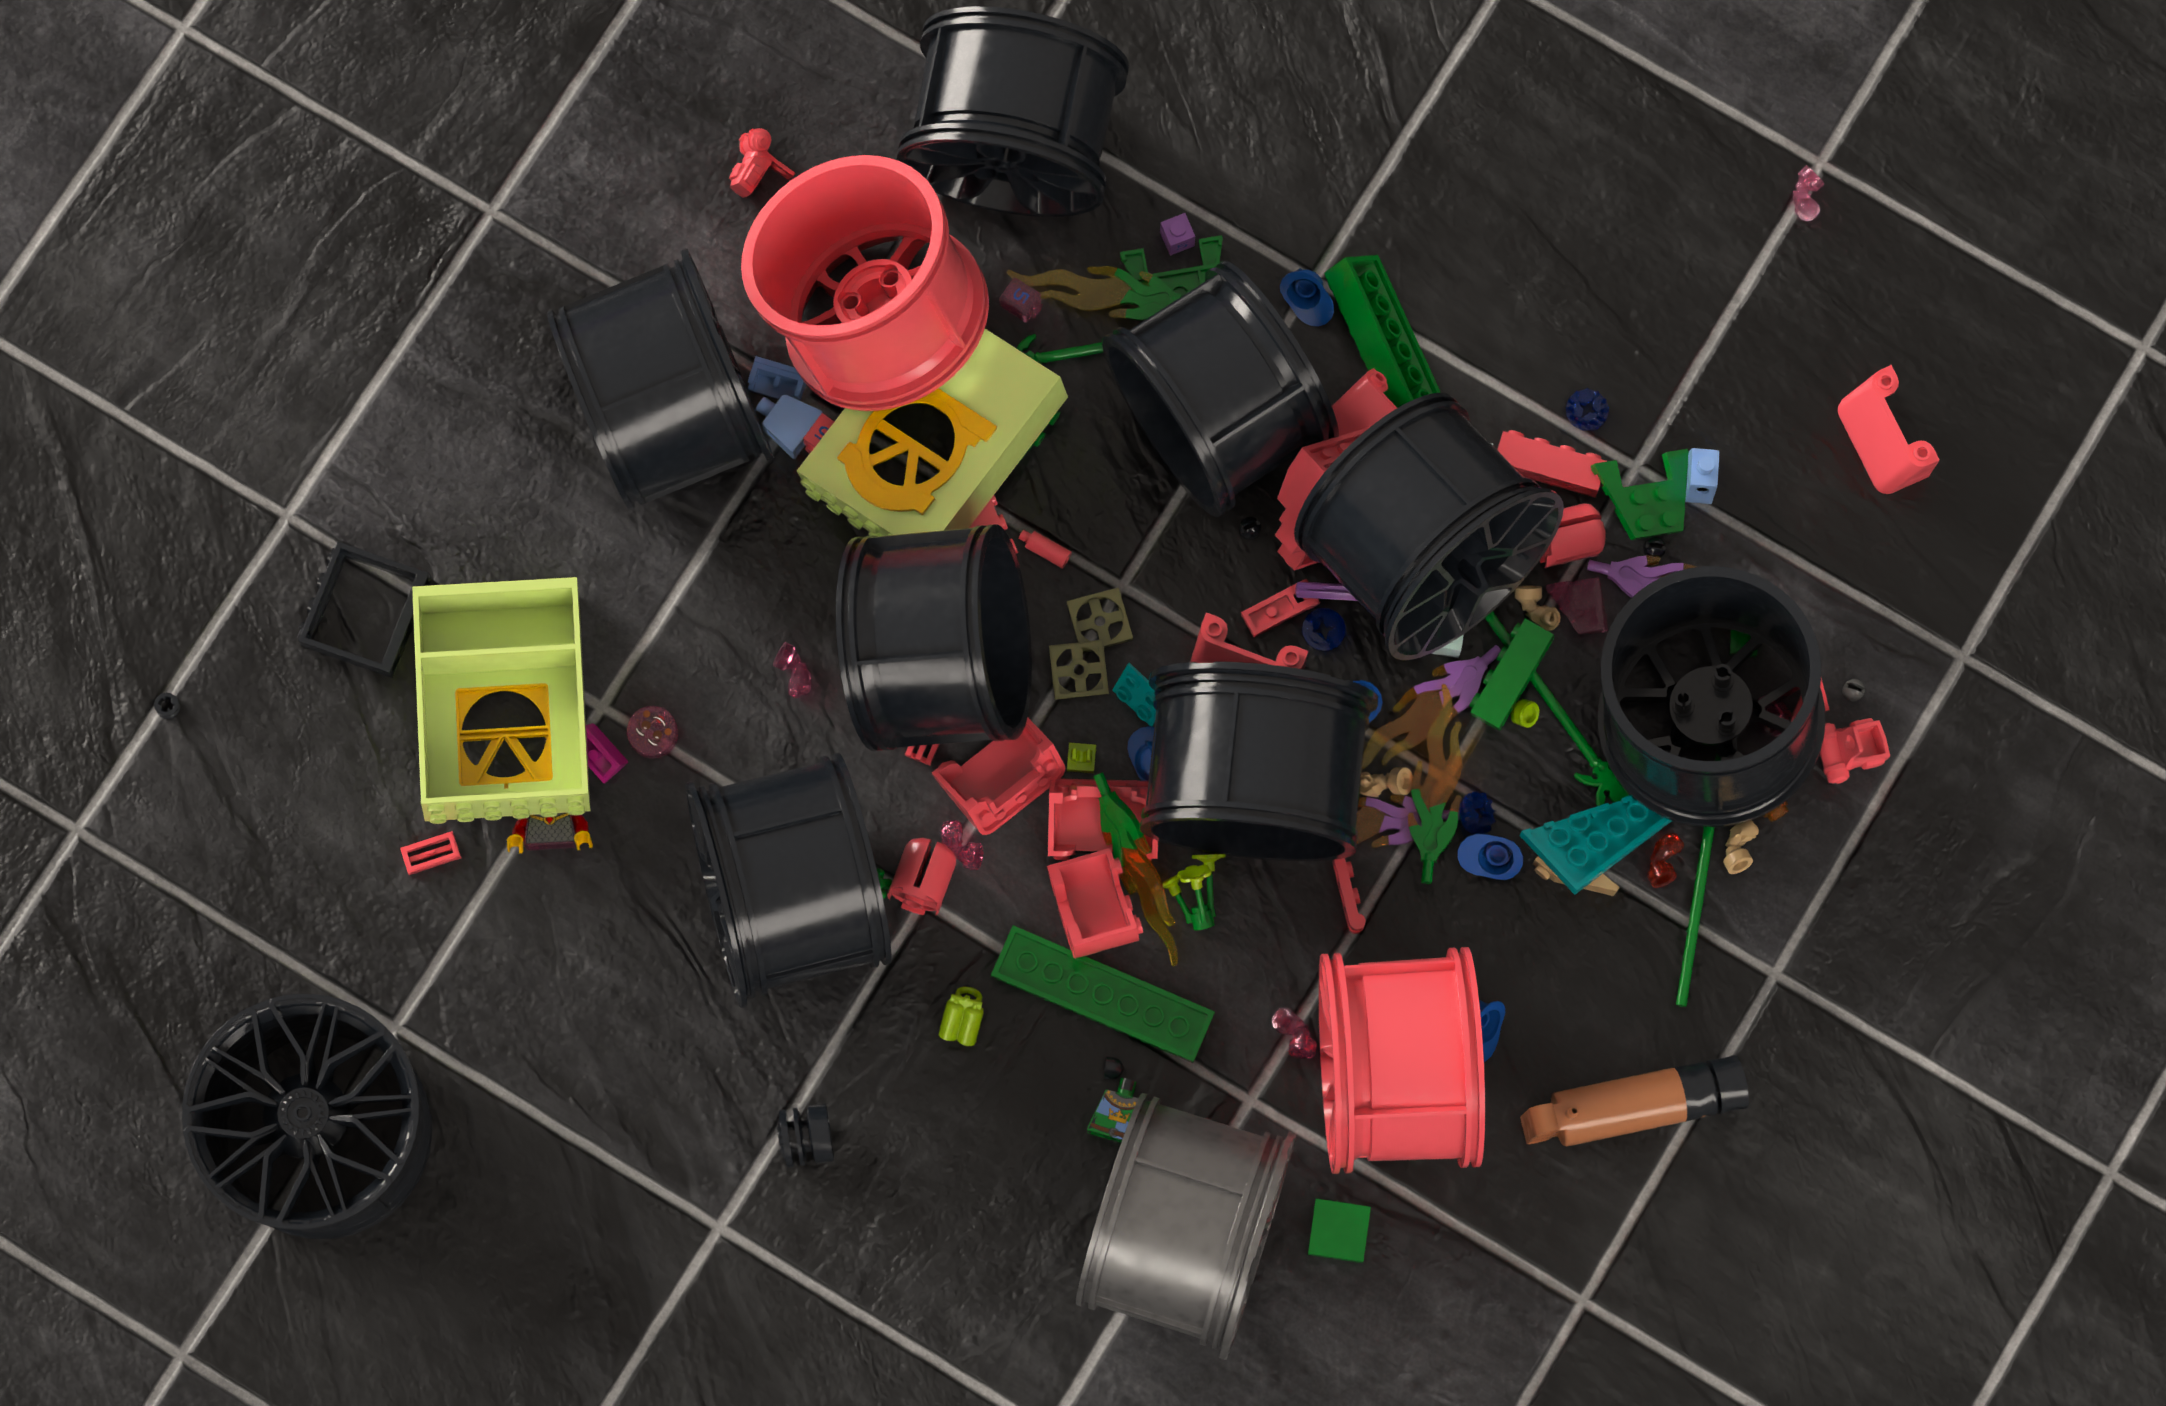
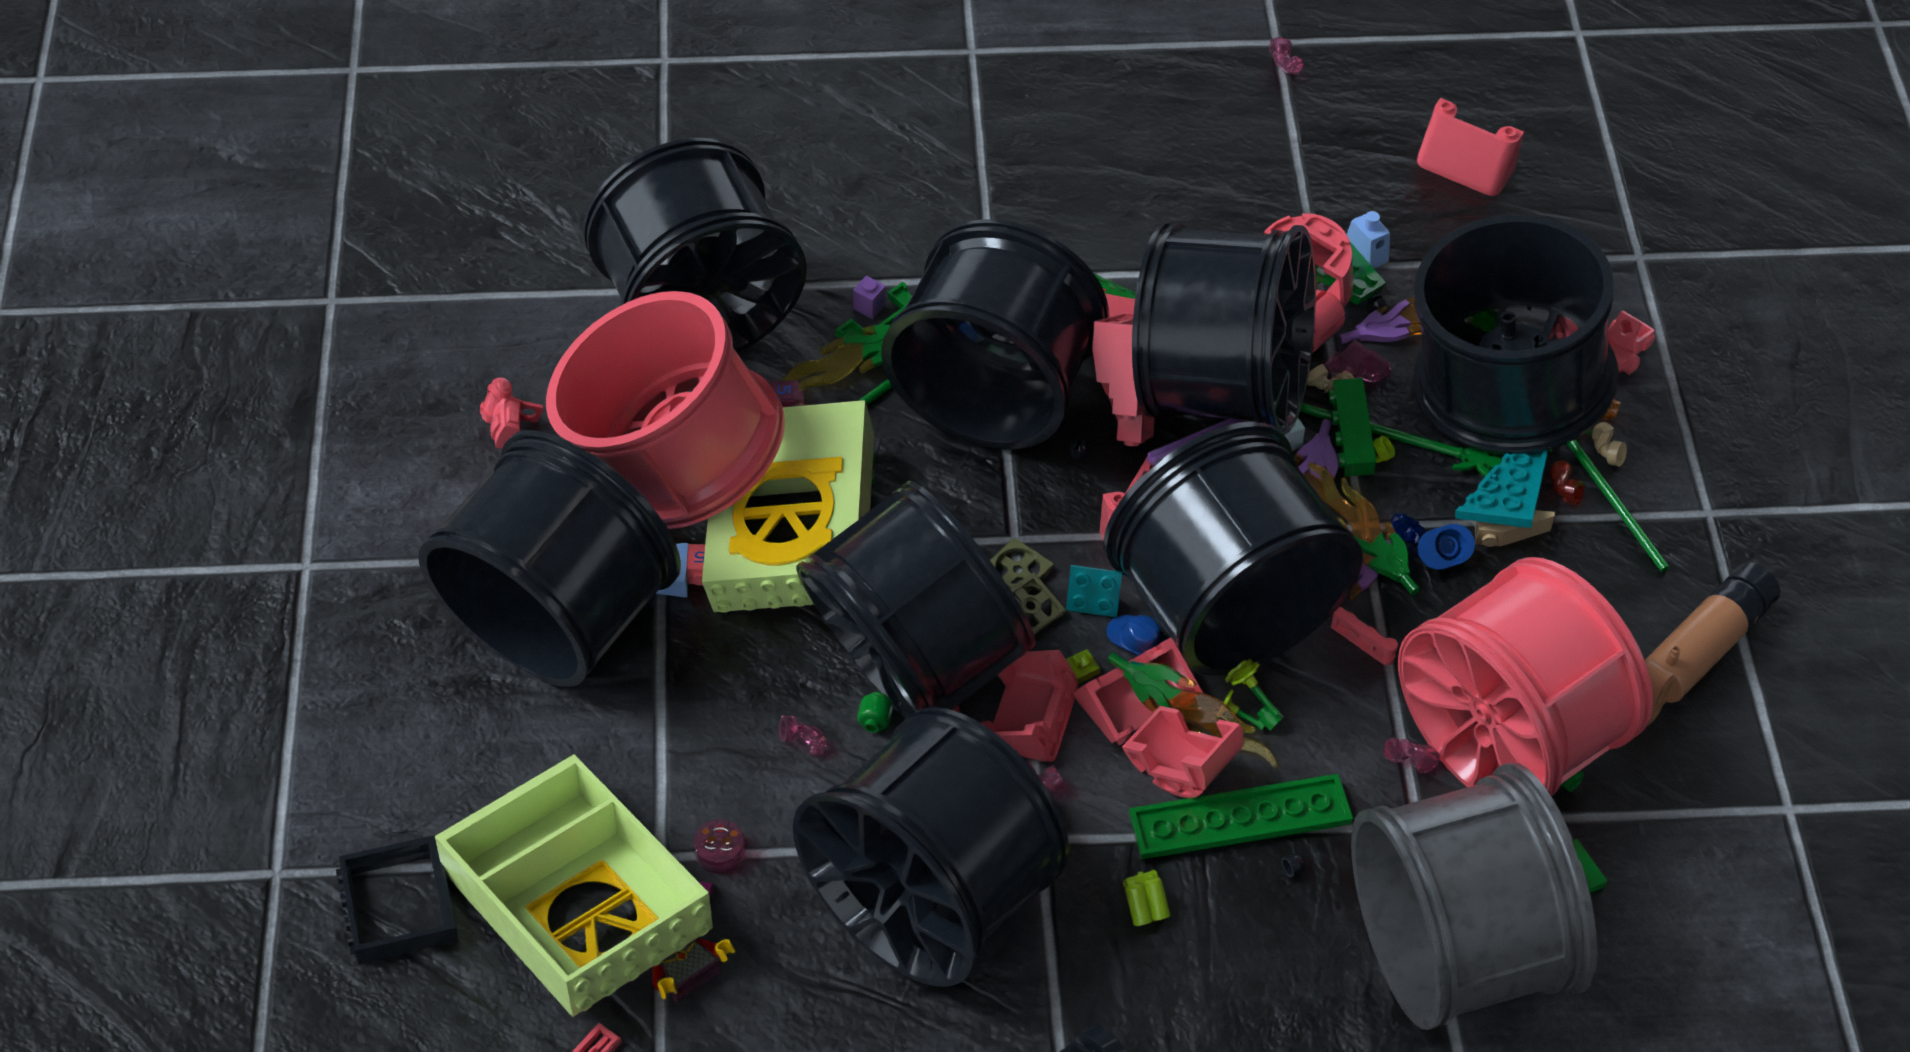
camera: 35 degrees left, 25 degrees down
(1114, 1112) = (1329, 894): torso -> none
(1620, 511) = (1330, 250): none -> coral cylinder

